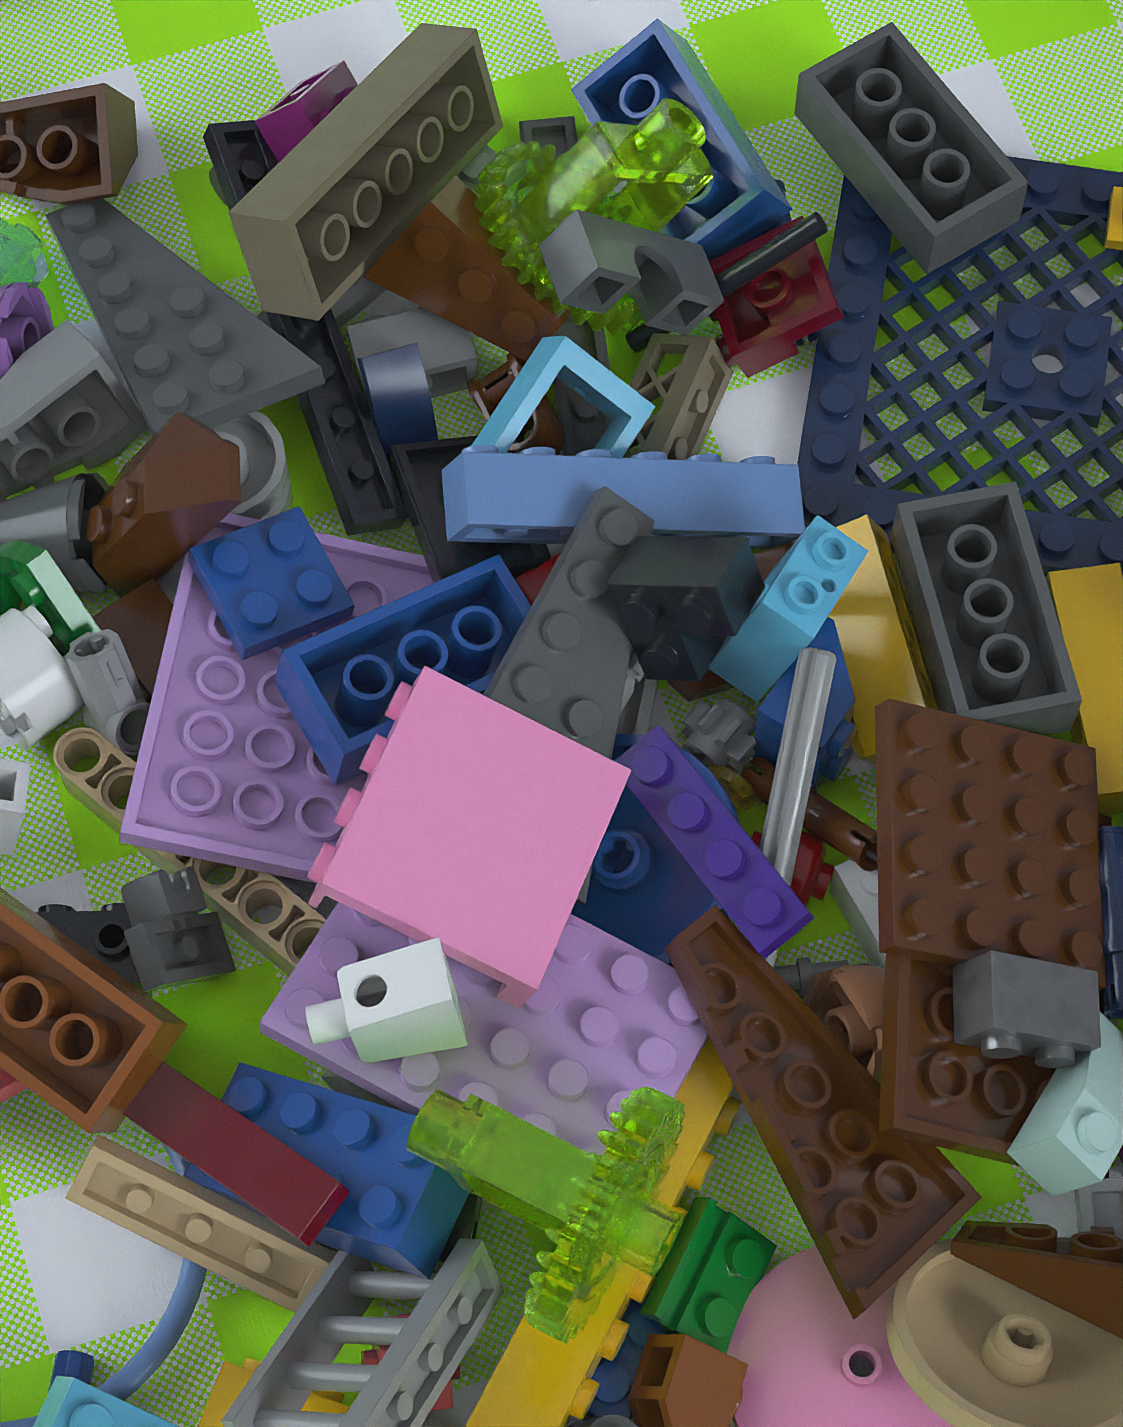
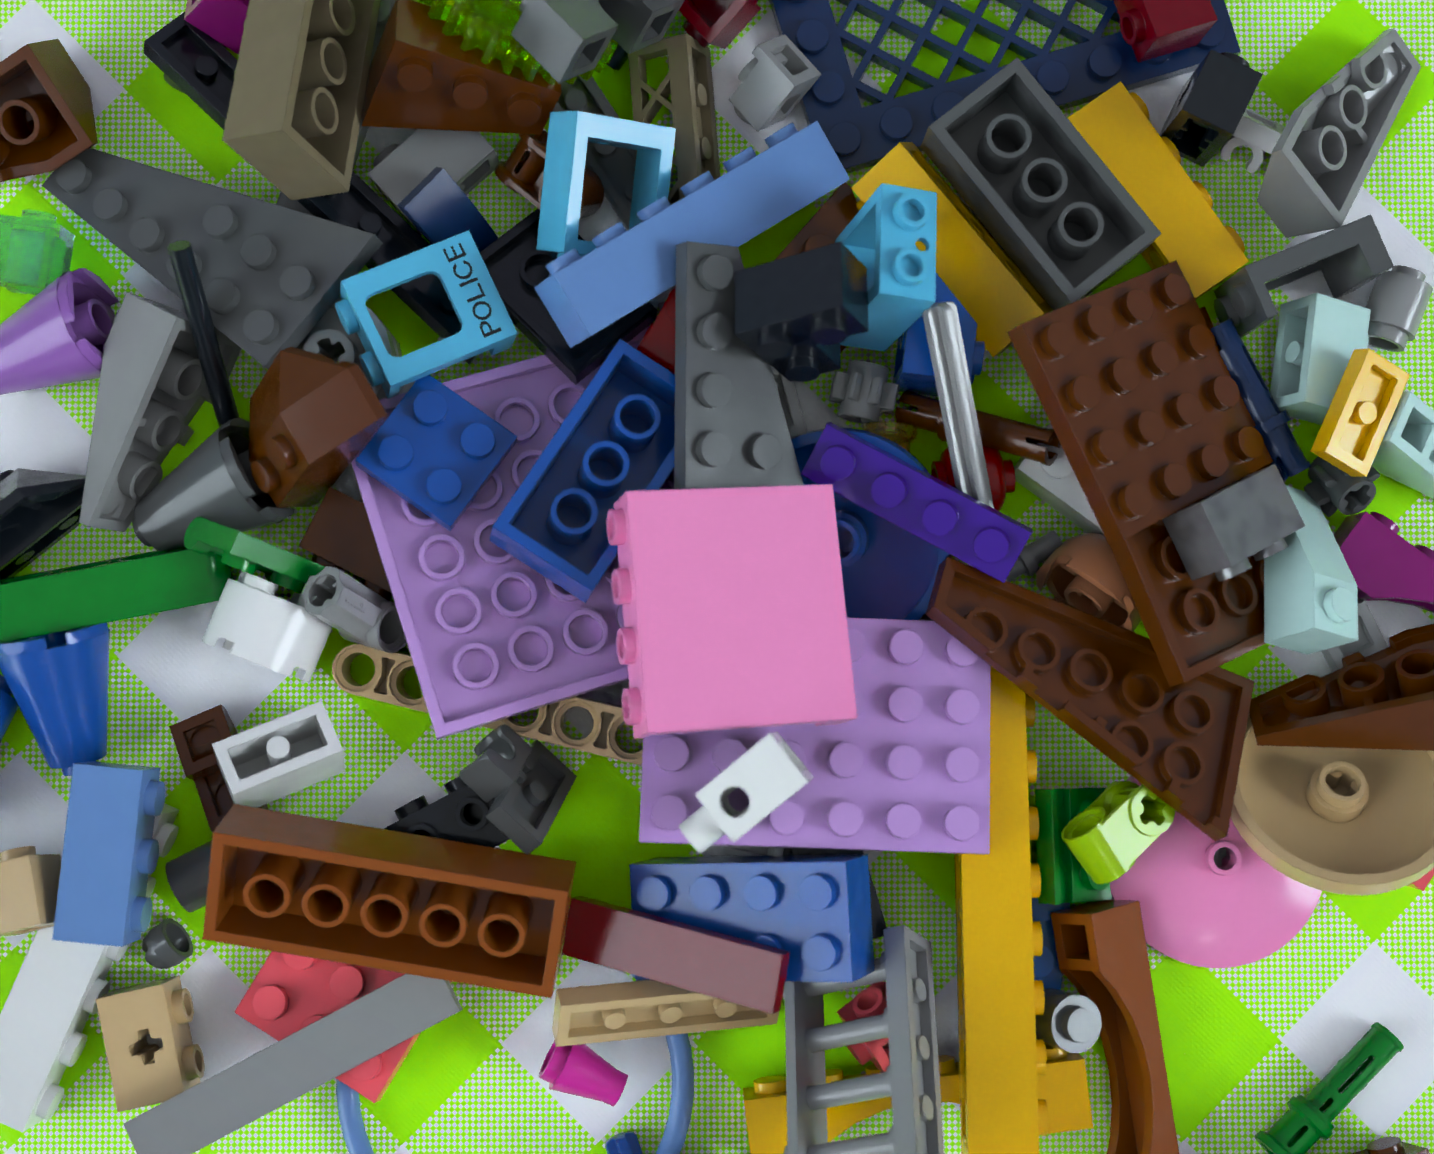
camera: 30 degrees left, 20 degrees up
(74, 1249) = (582, 1073): none -> dark pink cone
(117, 379) = (202, 330): none -> black bar
(382, 457) = (470, 291): none -> medium azure window
(587, 1202) = (969, 885): clear neon green piece -> none
(754, 1266) = (1116, 829): none -> lime piece
(775, 419) = (773, 83): none -> light grey brick

